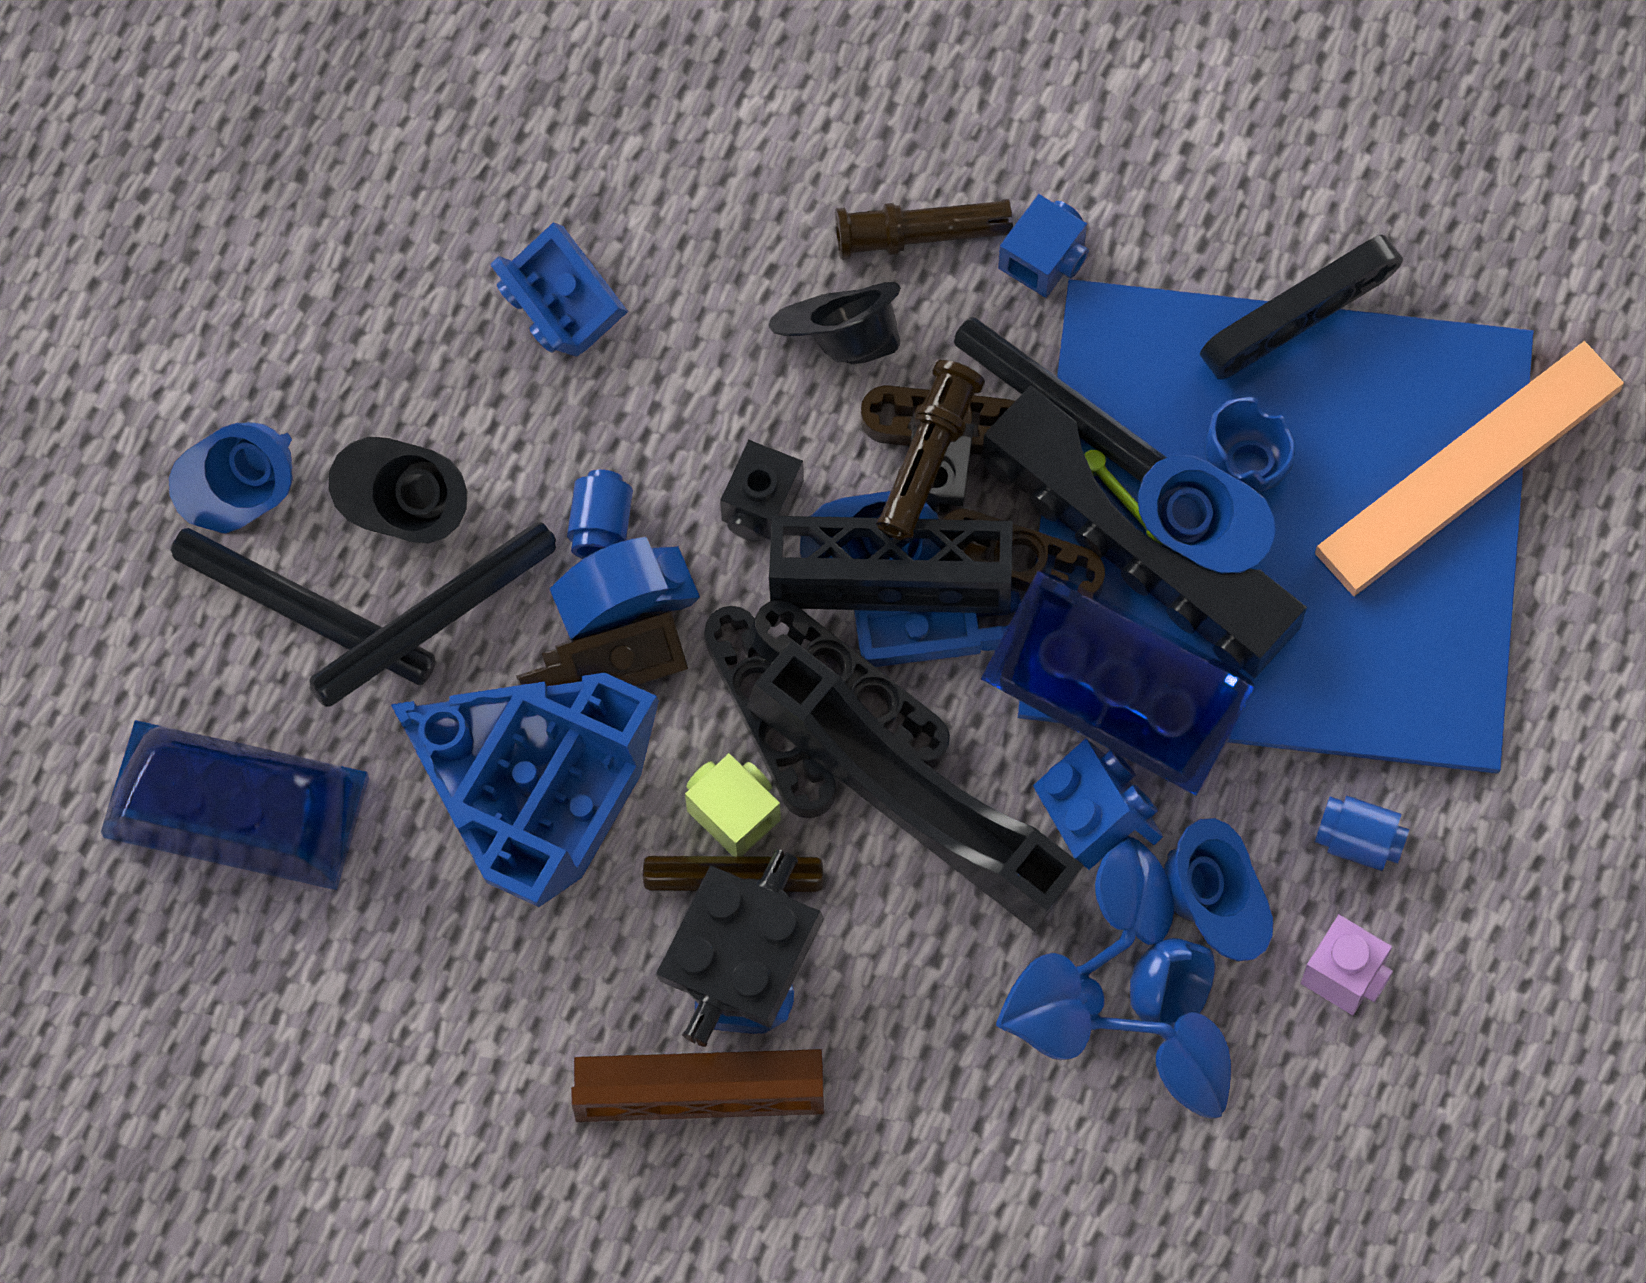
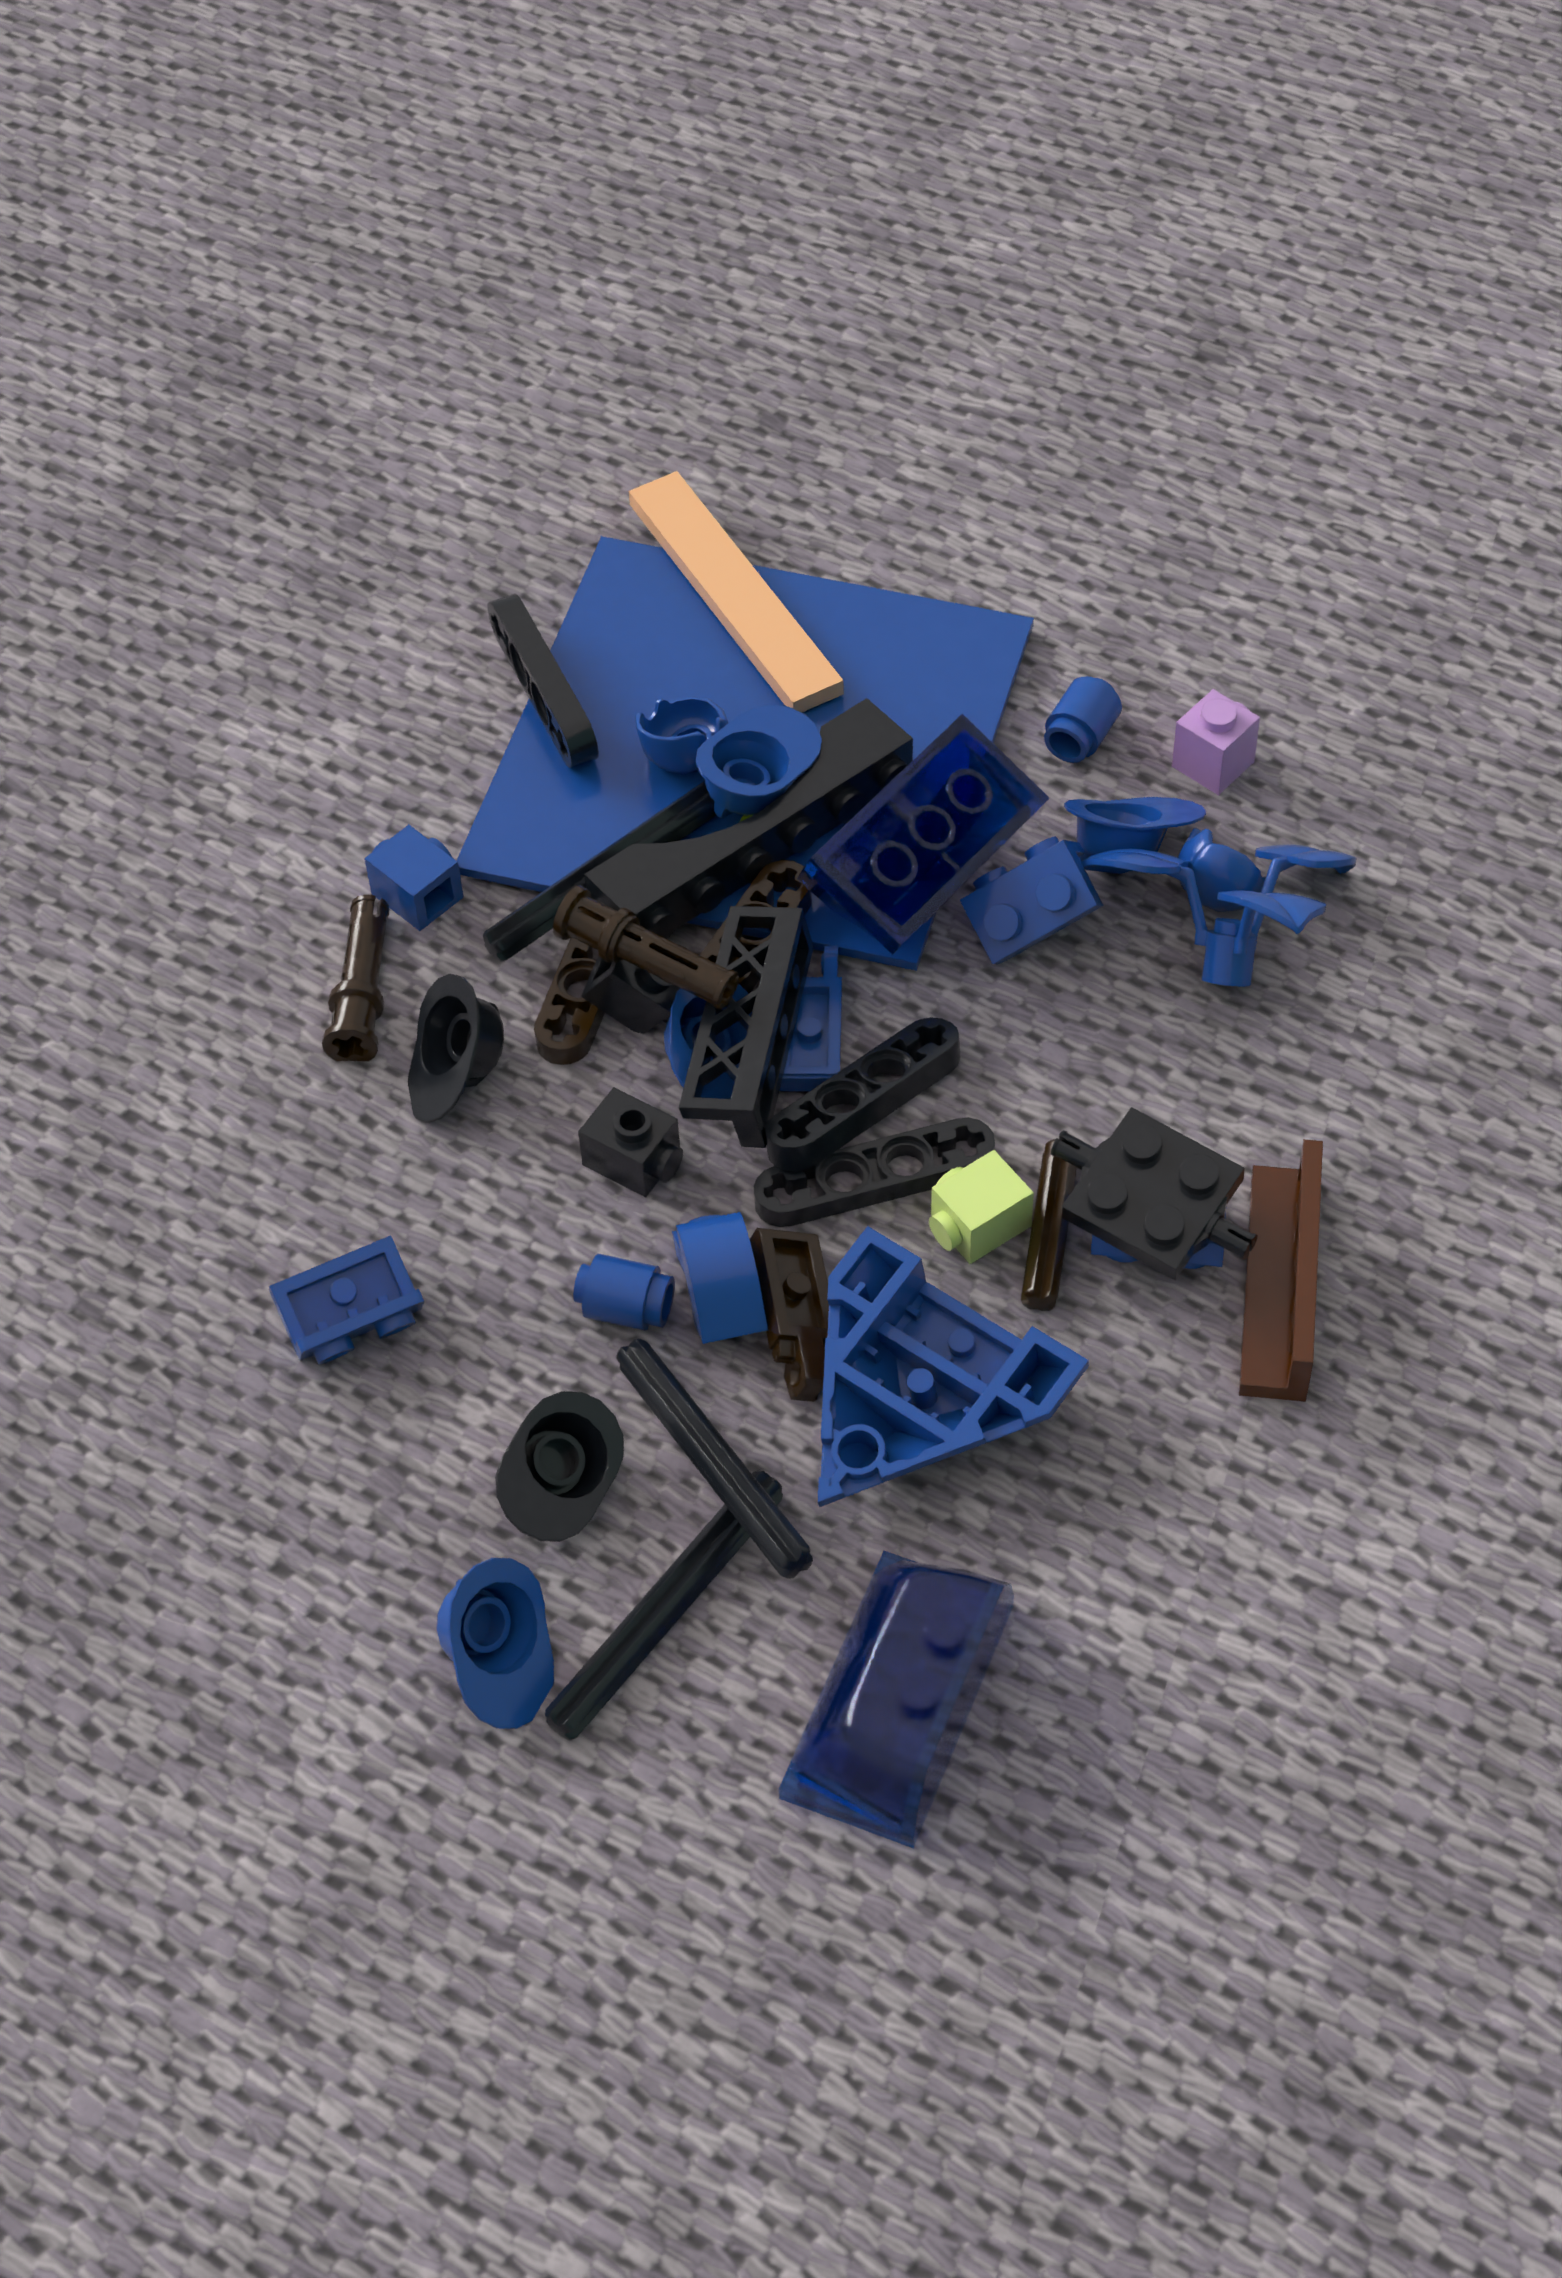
camera: 80 degrees left, 15 degrees down
(835, 729) = (912, 1094): black arch -> none

